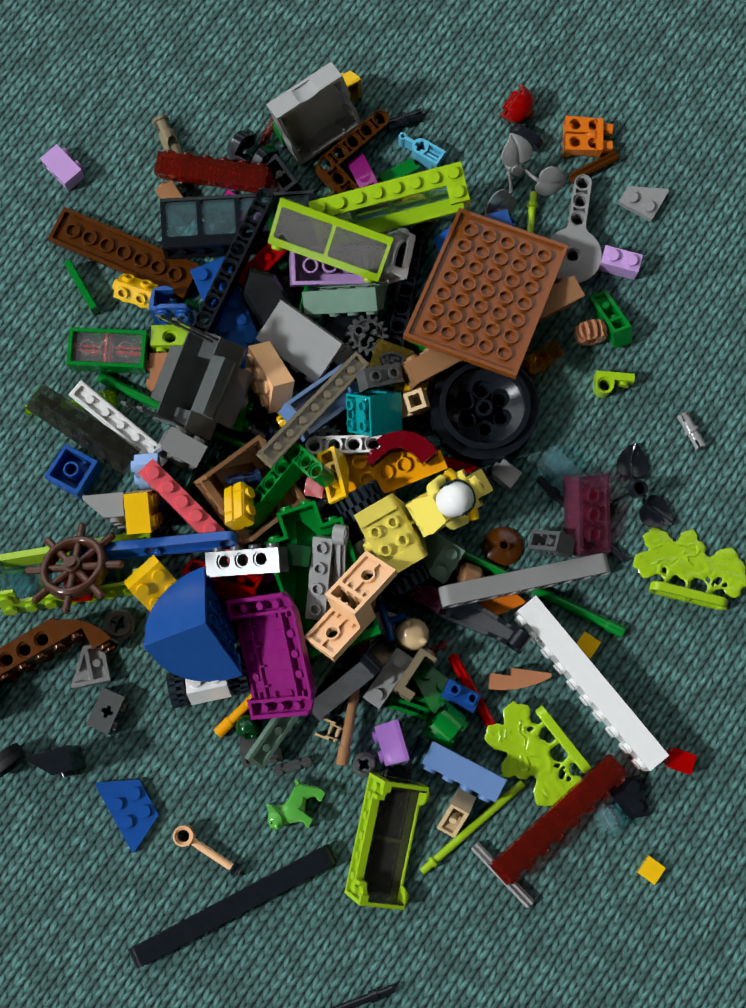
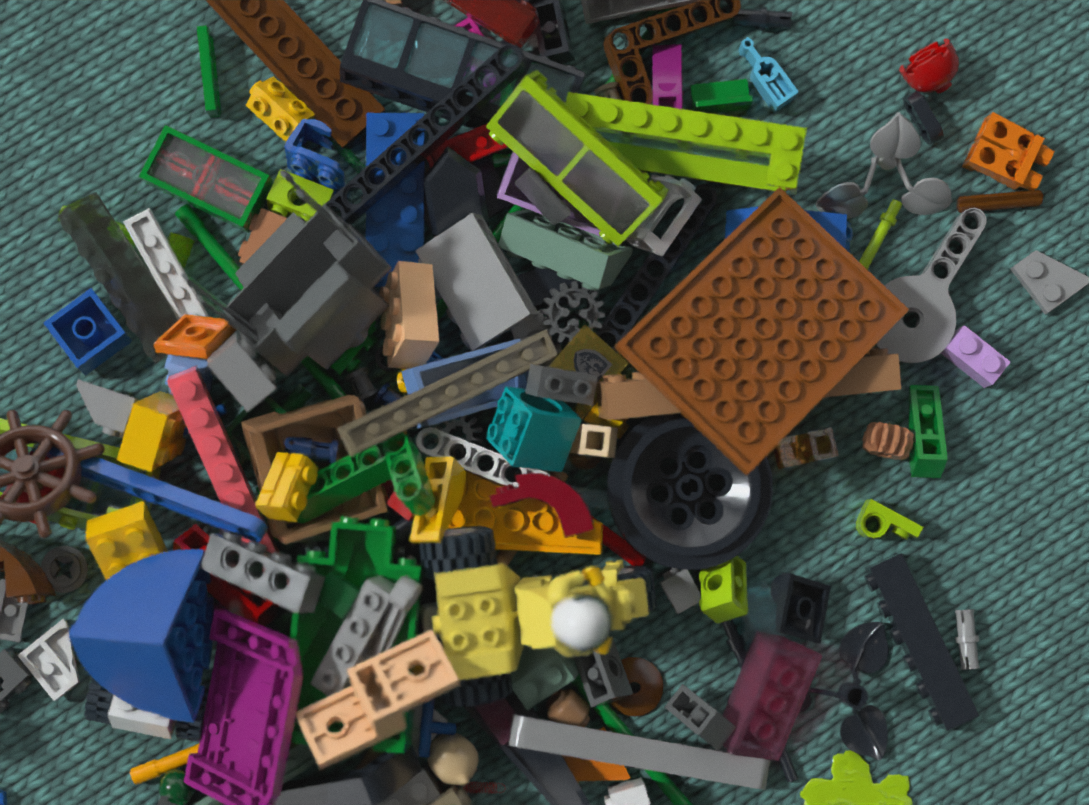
camera: 20 degrees right, 5 degrees up
(136, 683) = (53, 661): none -> white wing
(142, 443) = (194, 336): none -> orange tile
(319, 272) = (542, 197): none -> flat silver slope
(479, 542) = (603, 676): none -> dark grey brick
(532, 460) = (724, 590): none -> lime brick
(582, 451) = (800, 606): none -> black slope
(664, 443) = (921, 642): none -> black brick

